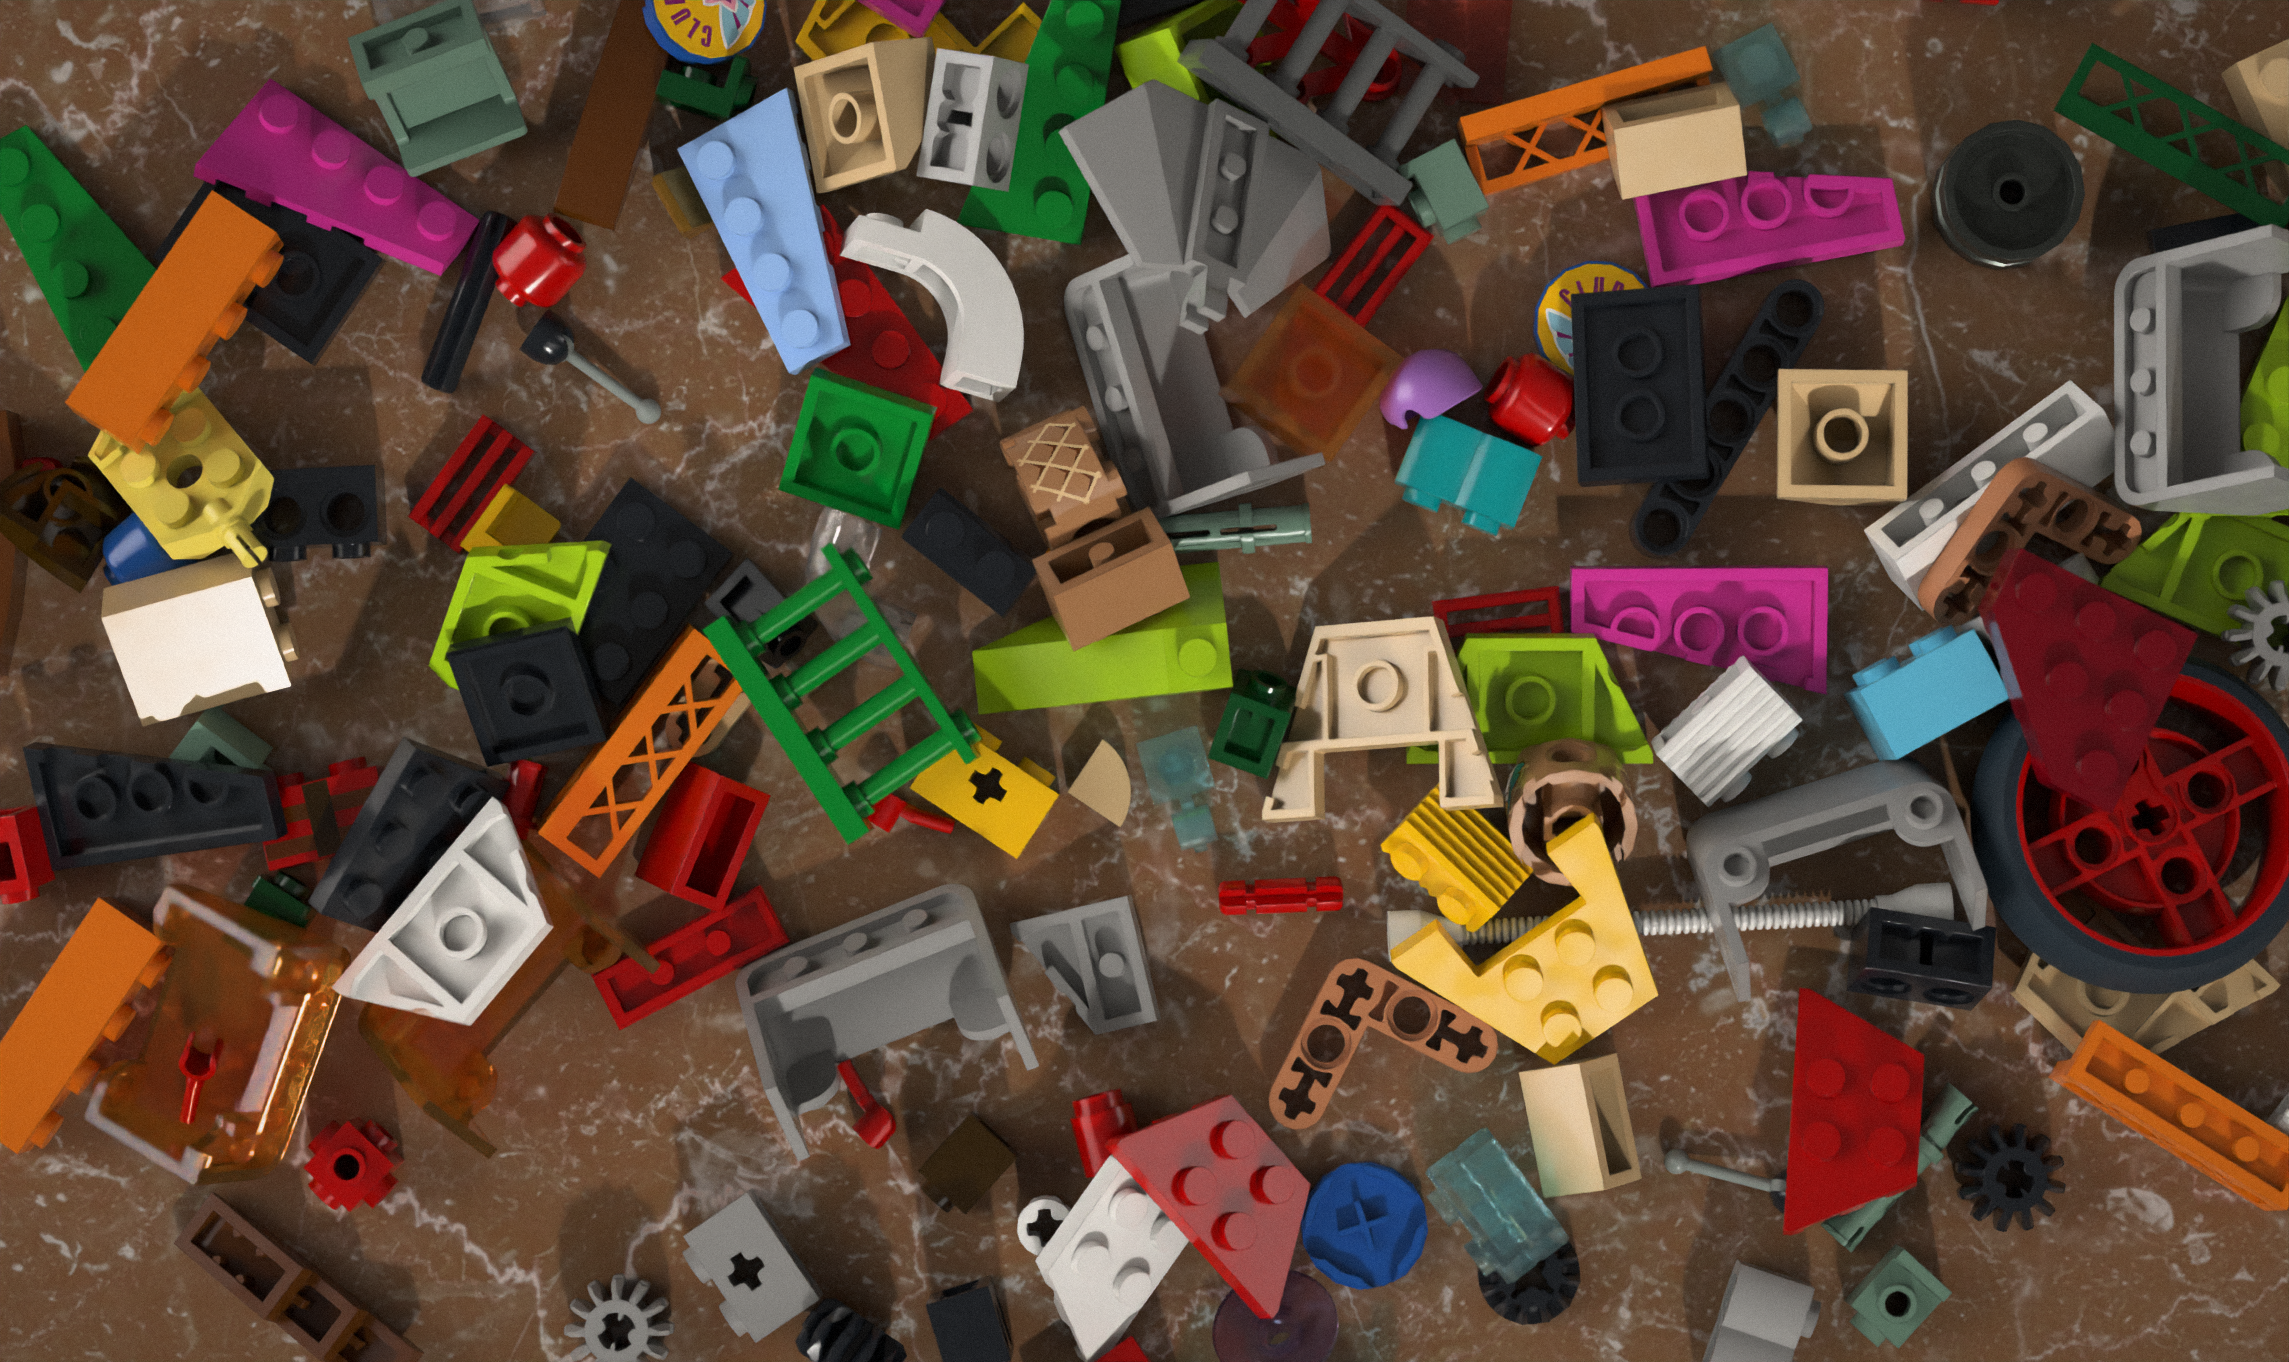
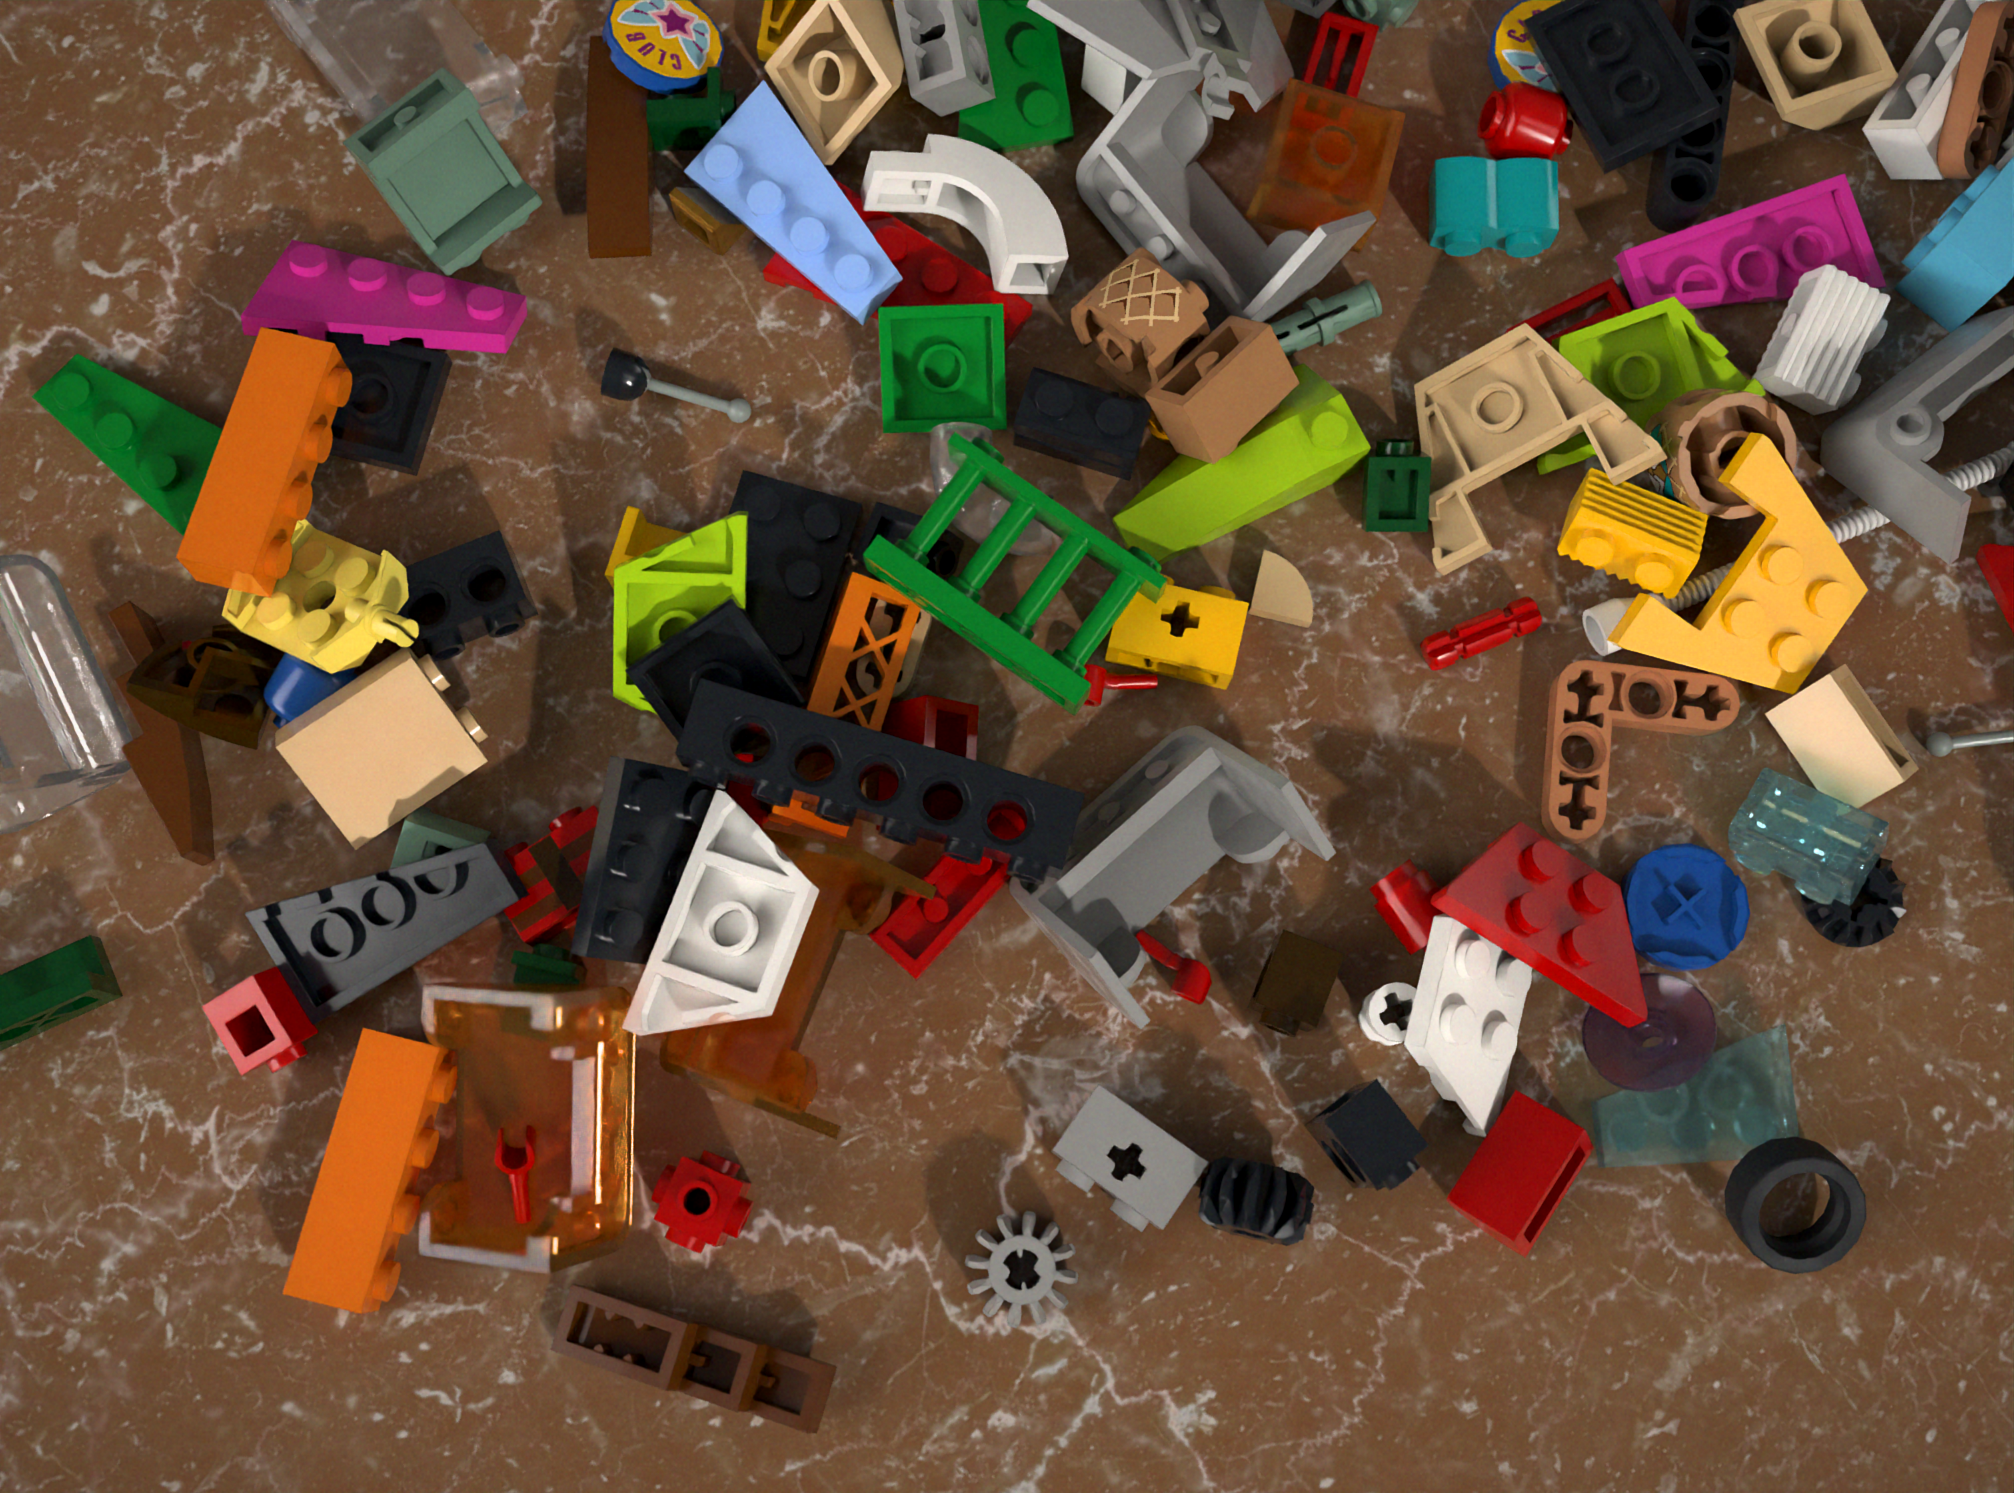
camera: 25 degrees left, 10 degrees down
(454, 466) = (613, 481): red tile -> none
(466, 306) = (540, 371): black axle -> none
(521, 734) = (726, 714): none -> black brick
(539, 260) = (592, 308): red head -> none
(1096, 961) = (1337, 752): light grey wing -> none
(1176, 770) = (1344, 552): clear light blue plate -> none
(1427, 386) = (1429, 135): medium lavender hair -> none

